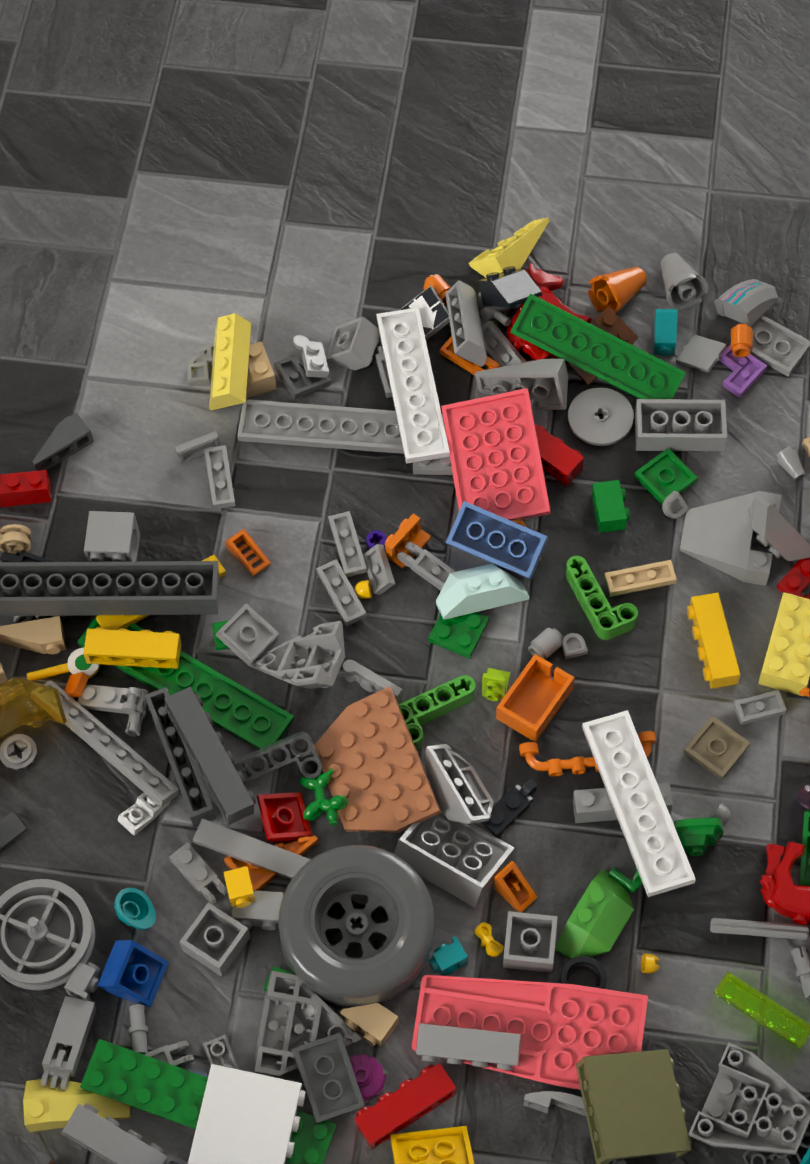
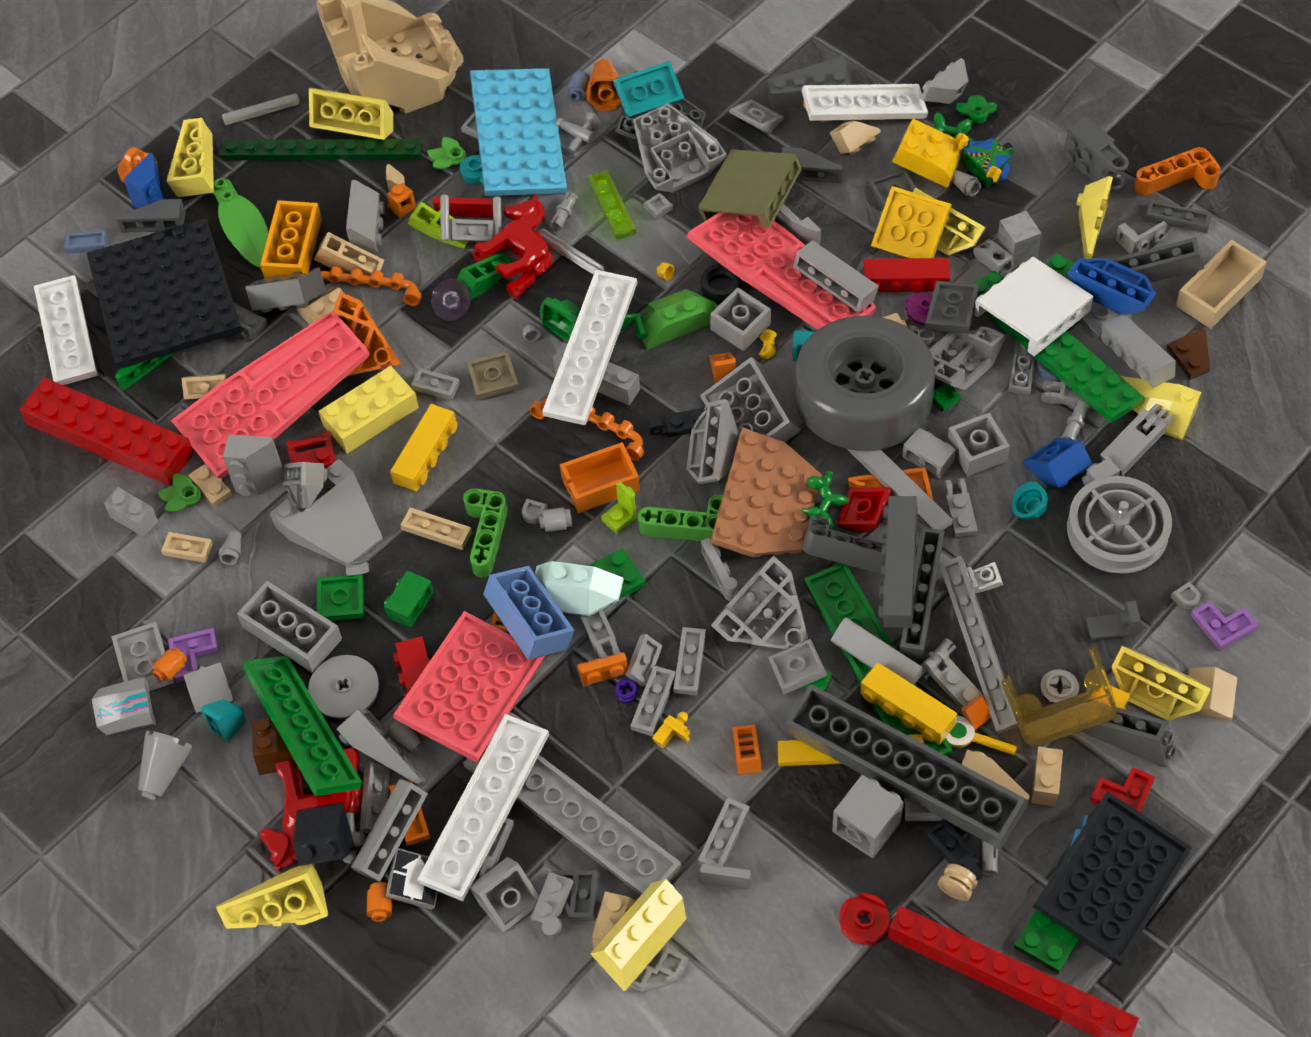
camera: 145 degrees left, 5 degrees down
(65, 440) = (847, 964): dark grey slope -> none
(78, 490) = (864, 933): none -> red plate
(182, 678) = (872, 650): none -> light grey slope
(239, 887) = (937, 457): yellow brick -> none
(313, 532) = (672, 727): none -> yellow piece
(363, 589) = (669, 653): yellow hinge -> none
(616, 288) = (222, 789): orange cone -> none
(717, 1042) = (658, 206): none -> light grey tile

